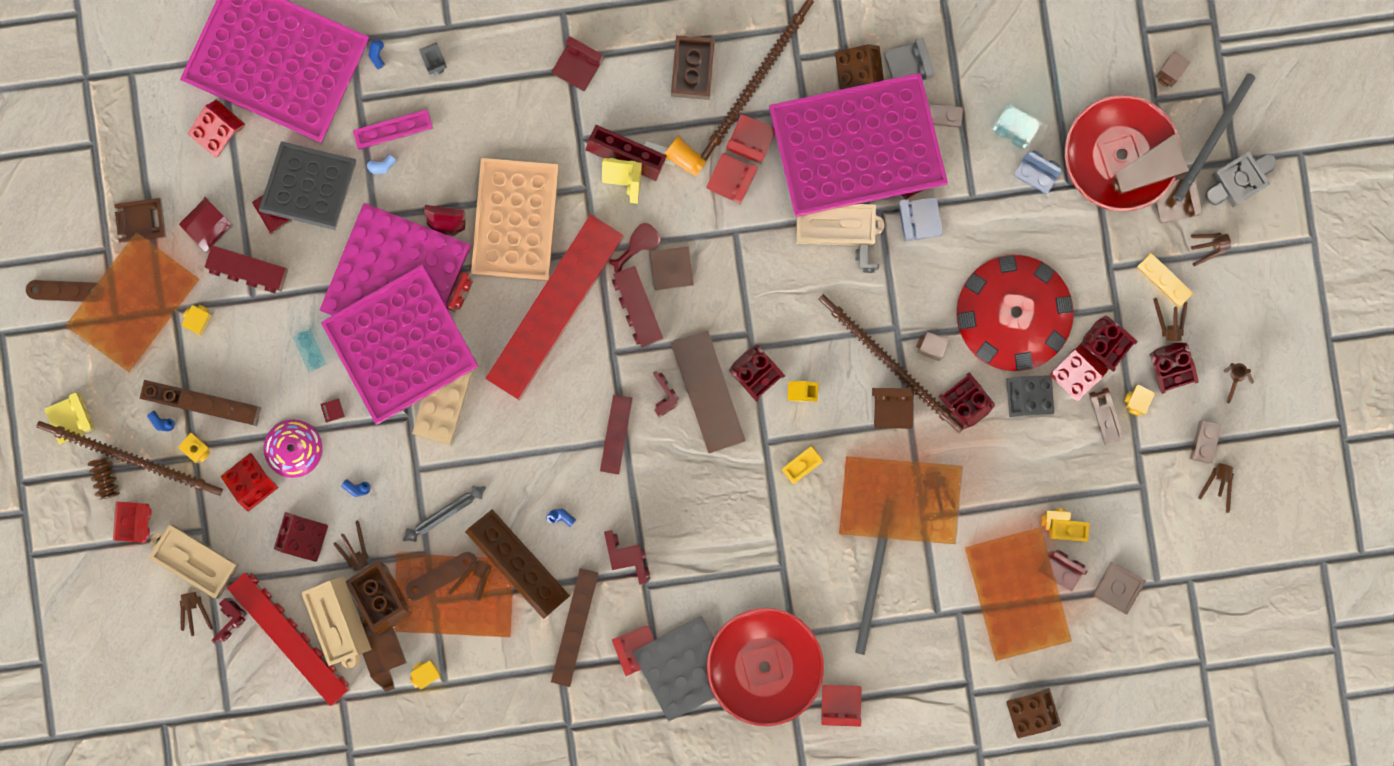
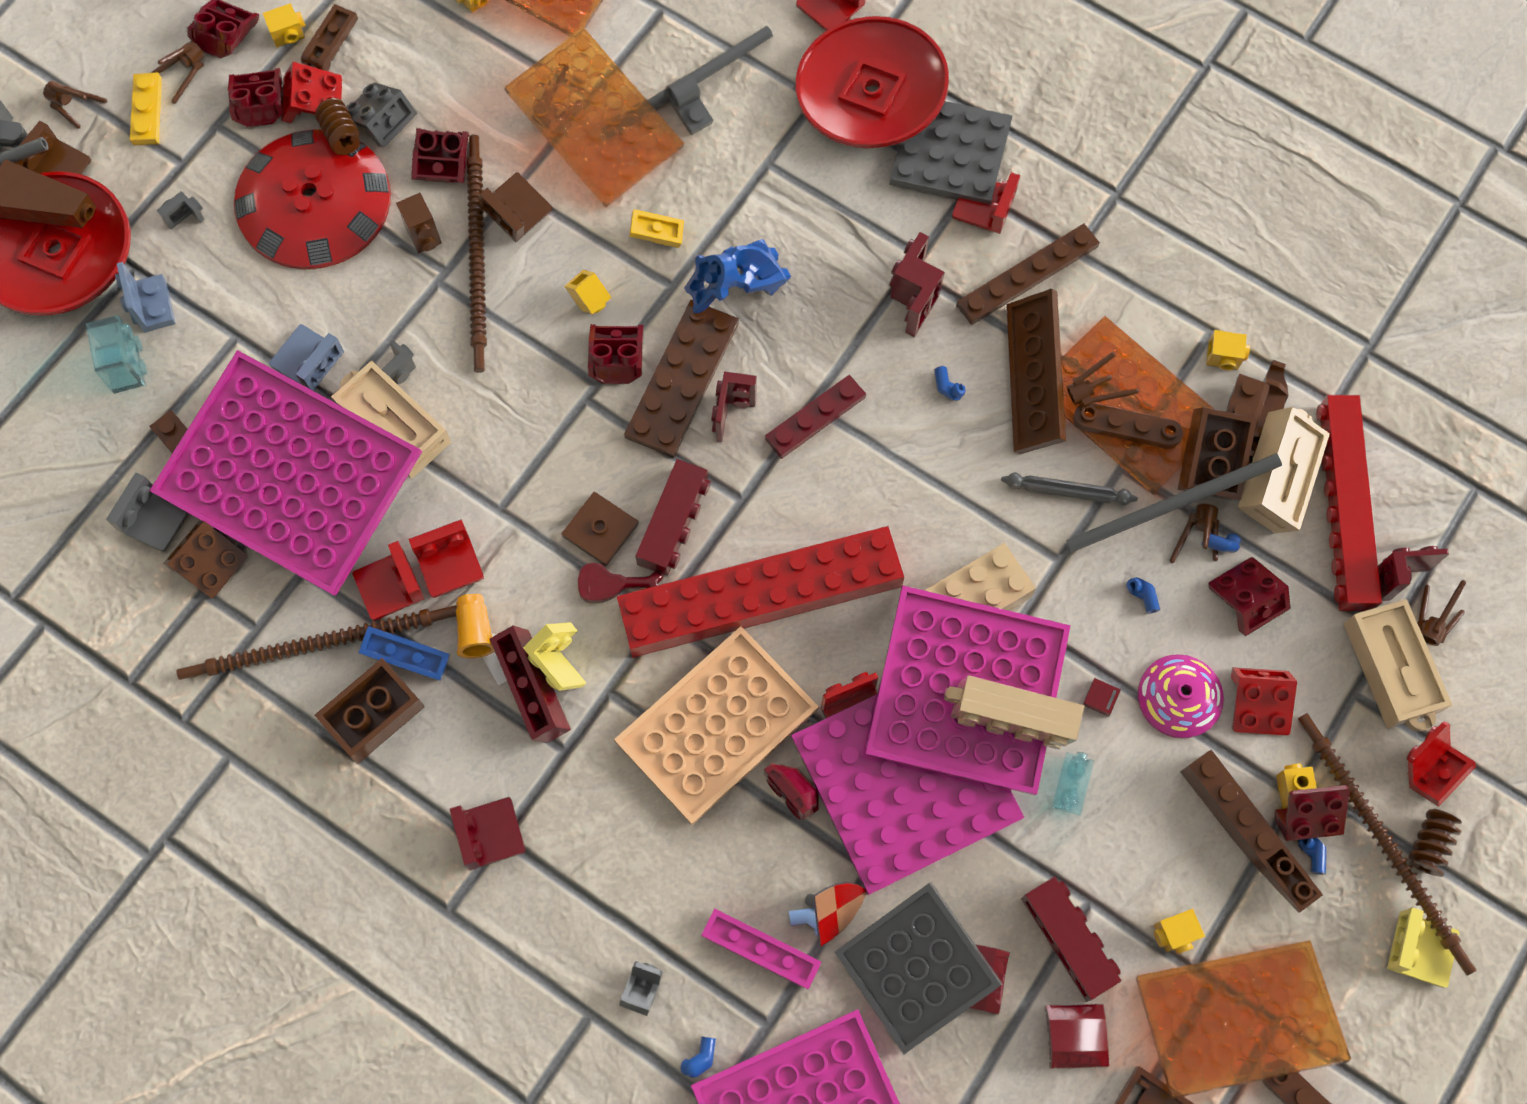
camera: 140 degrees left, 15 degrees down
(174, 435) = (1314, 813): none -> dark red bracket
(333, 556) = (1229, 544): none -> blue arm
(363, 346) = (1015, 711): none -> tan piece
(373, 179) = (835, 908): none -> shield
(378, 546) = (1174, 502): none -> dark grey piece
(705, 111) = (404, 653): none -> blue plate
(734, 461) = (722, 273): none -> blue hips
(858, 559) = (686, 101): none -> dark grey plate
(1038, 361) = (337, 126): none -> reddish brown piece
(1080, 235) = (179, 208): none -> dark grey bracket

